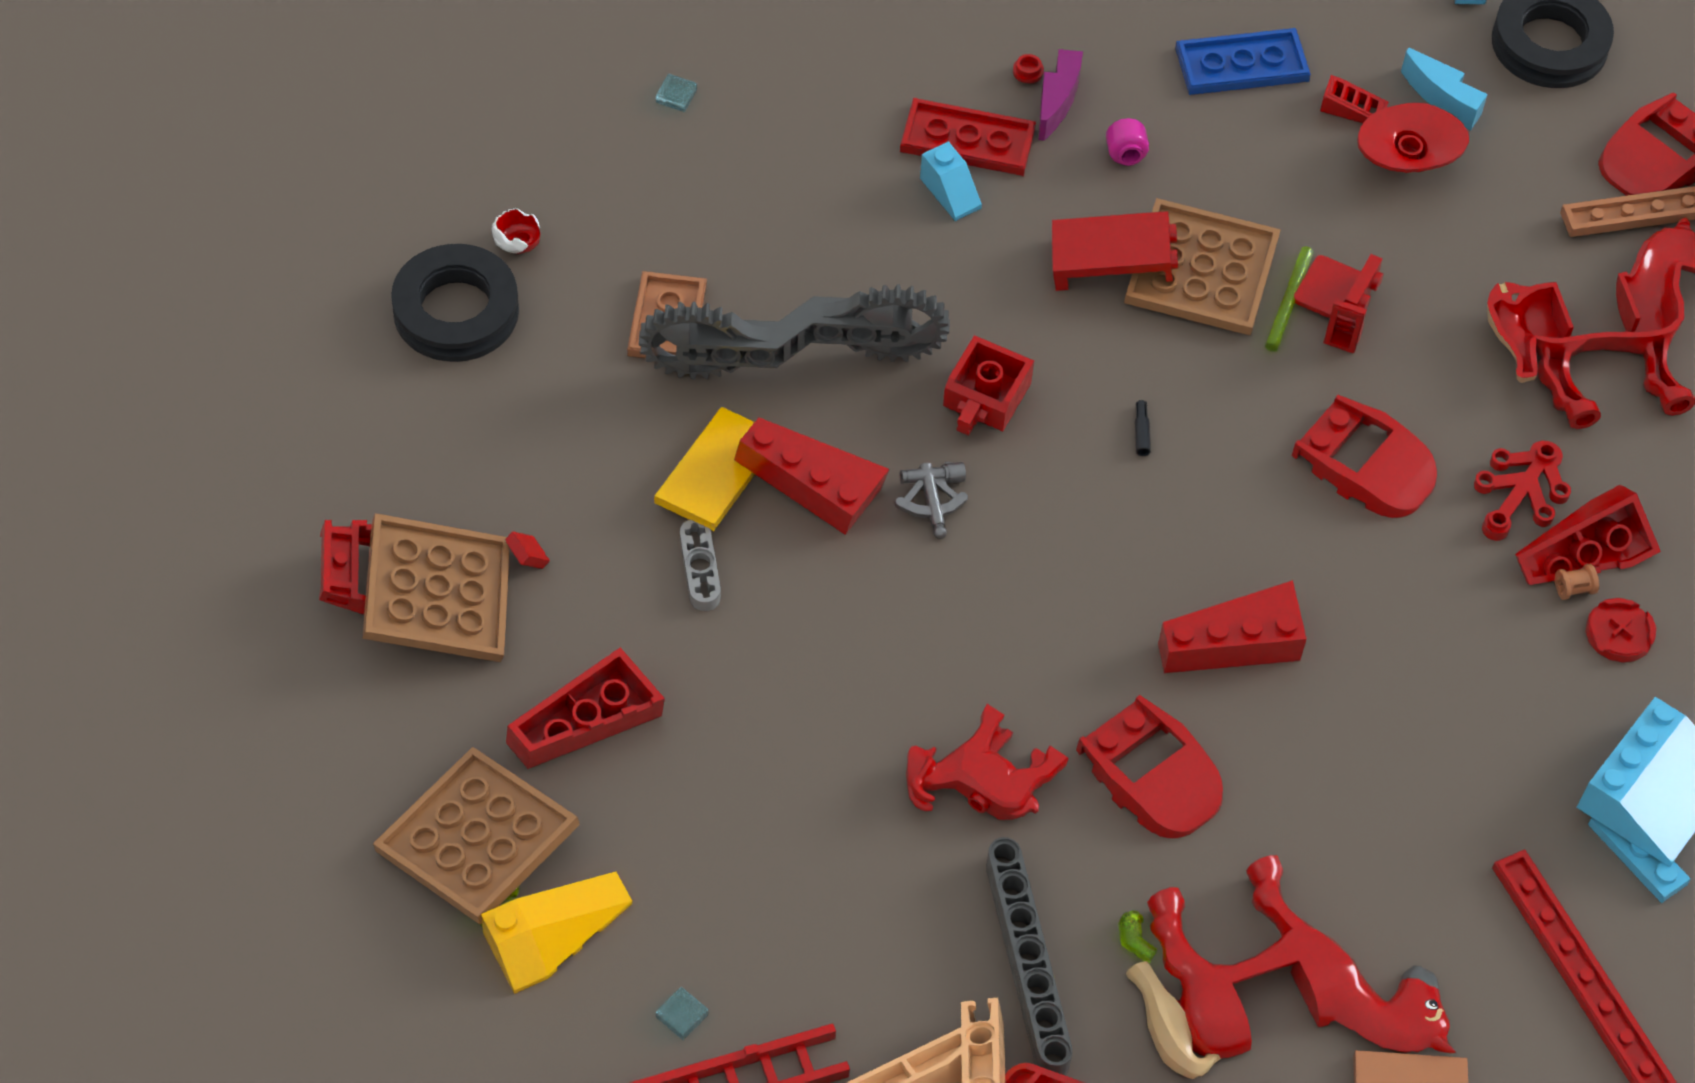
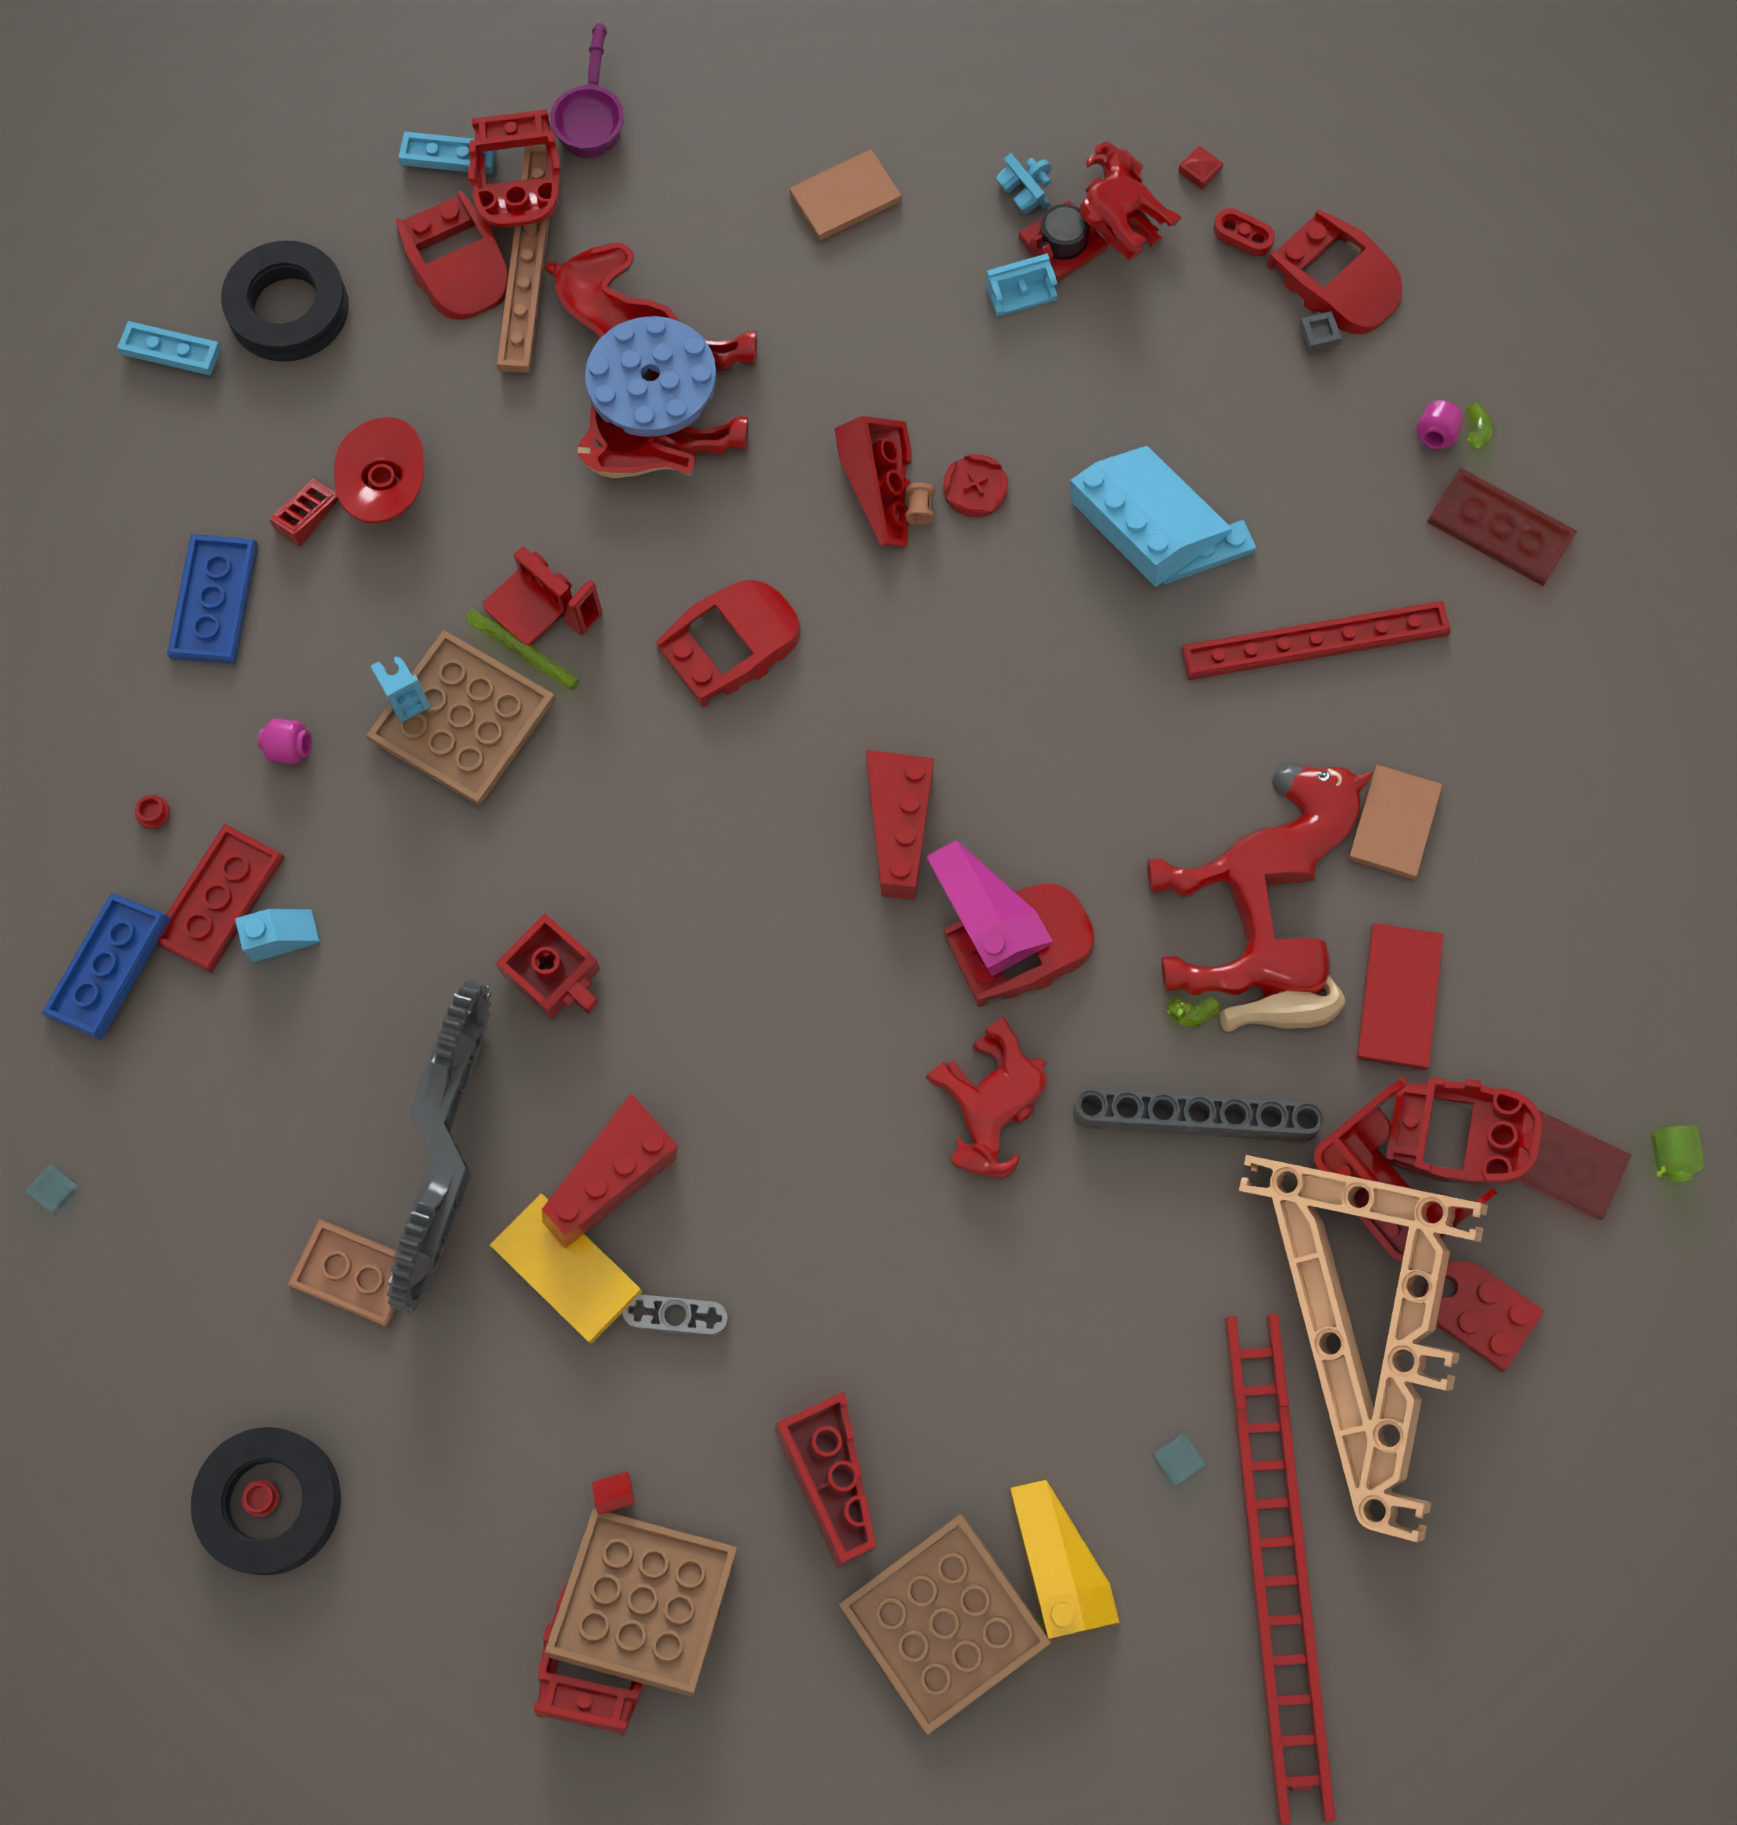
camera: 70 degrees left, 15 degrees up
(457, 299) = (260, 1498): none -> red plate
(516, 231) = (194, 1411): red hair -> none
(879, 74) = (106, 966): none -> blue tile
(929, 479) = (639, 1058): flat silver piece -> none
(1059, 91) = (193, 789): magenta slope -> none
(1113, 246) = (420, 795): red panel -> none
(1142, 429) = (635, 835): black pin -> none
(1163, 721) = (991, 912): none -> dark pink wedge
(1199, 200) = (401, 690): none -> medium azure hinge
(1443, 87) = (318, 422): medium azure slope -> none
(1523, 484) = (801, 510): red plant -> none
(1615, 347) = (654, 406): none -> medium blue plate

